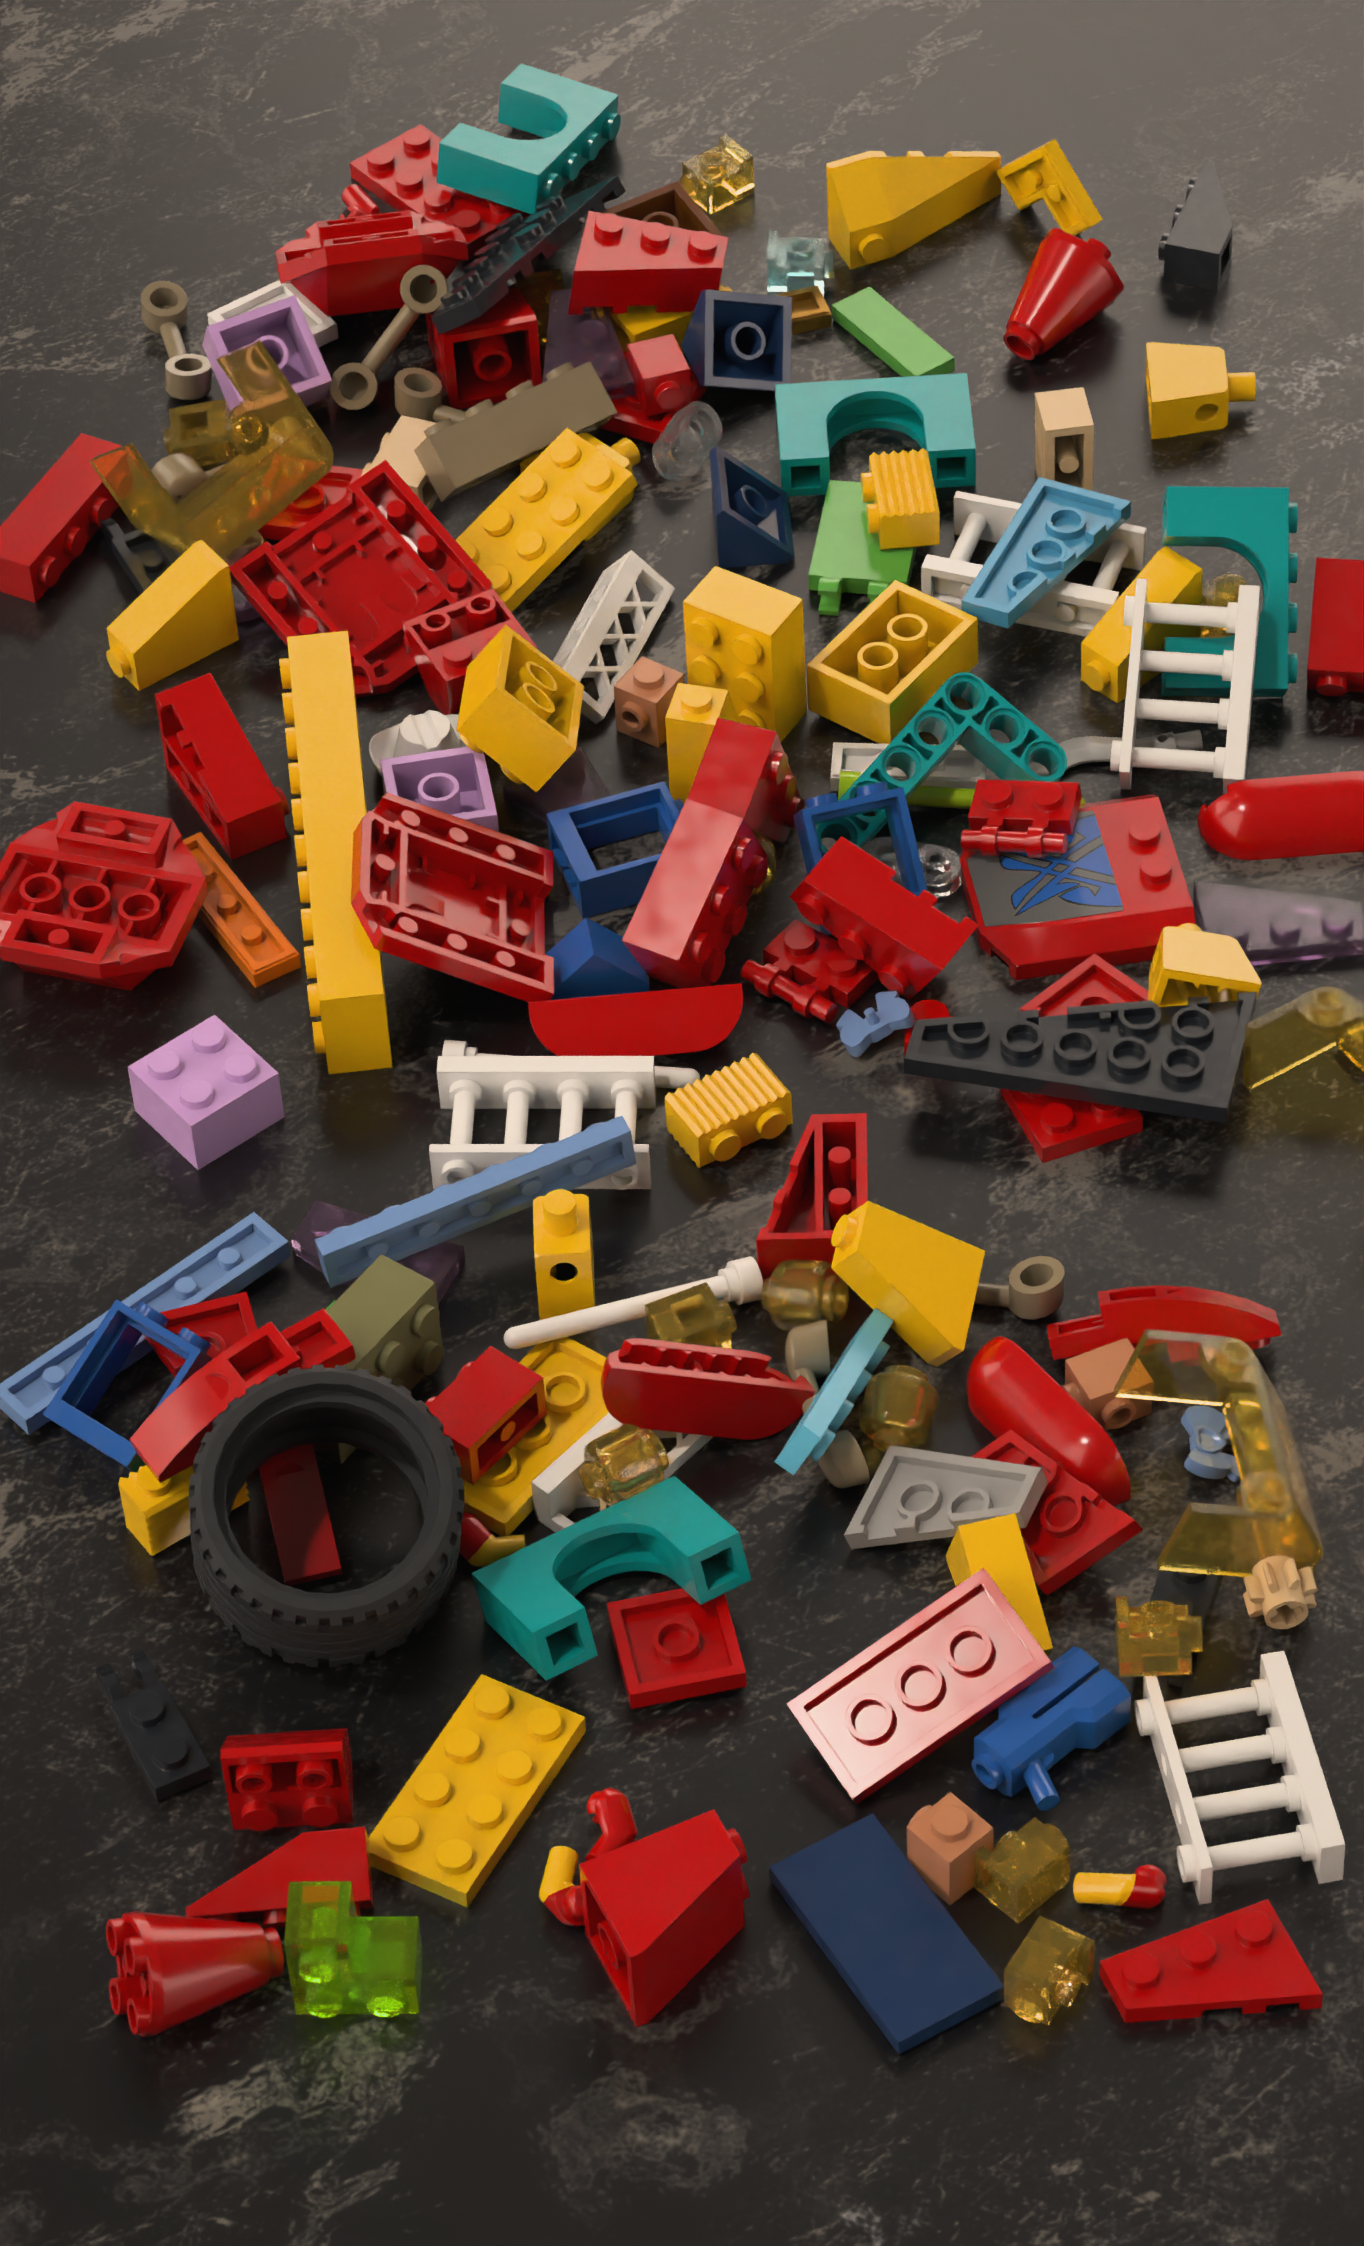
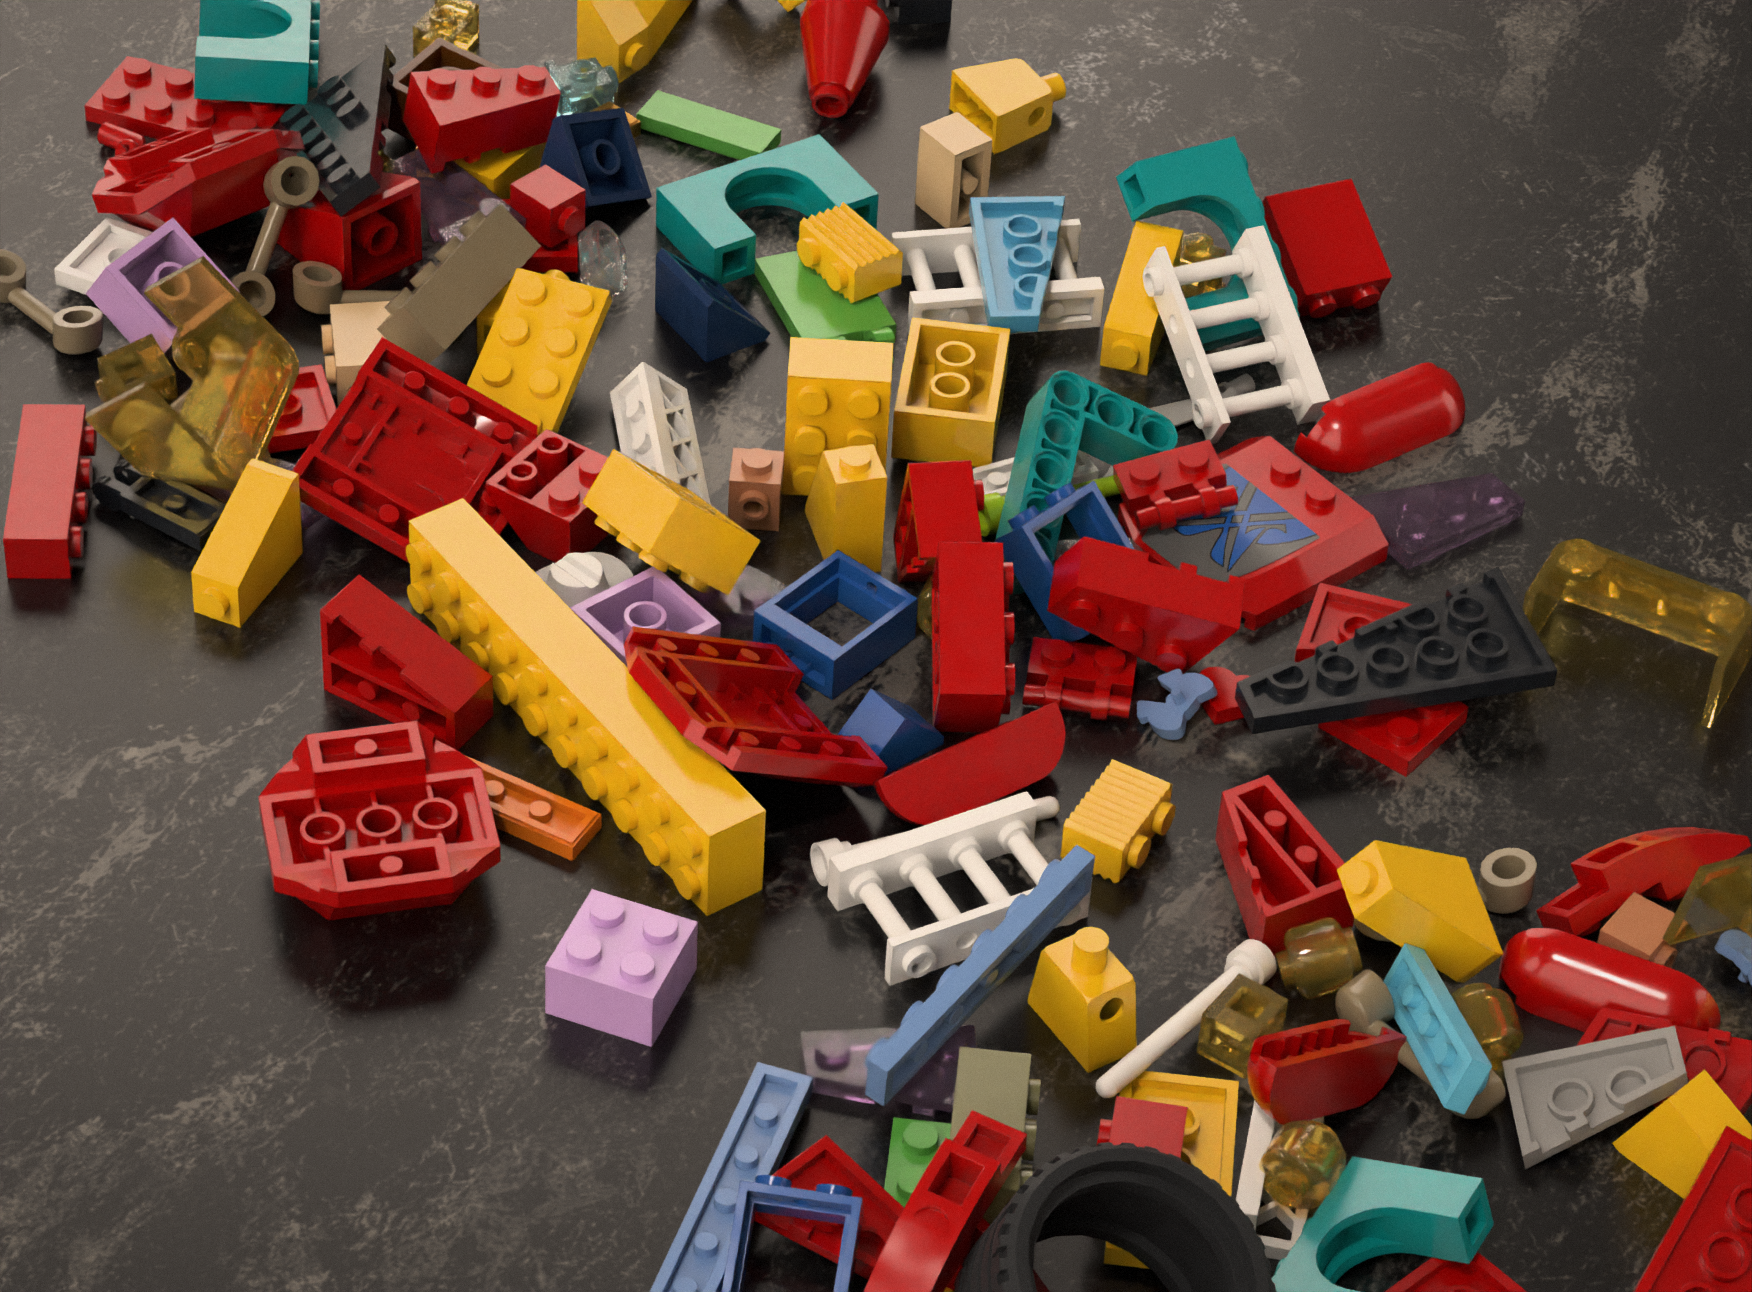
camera: 35 degrees left, 5 degrees down
(1198, 965) = (1424, 565): yellow torso -> none

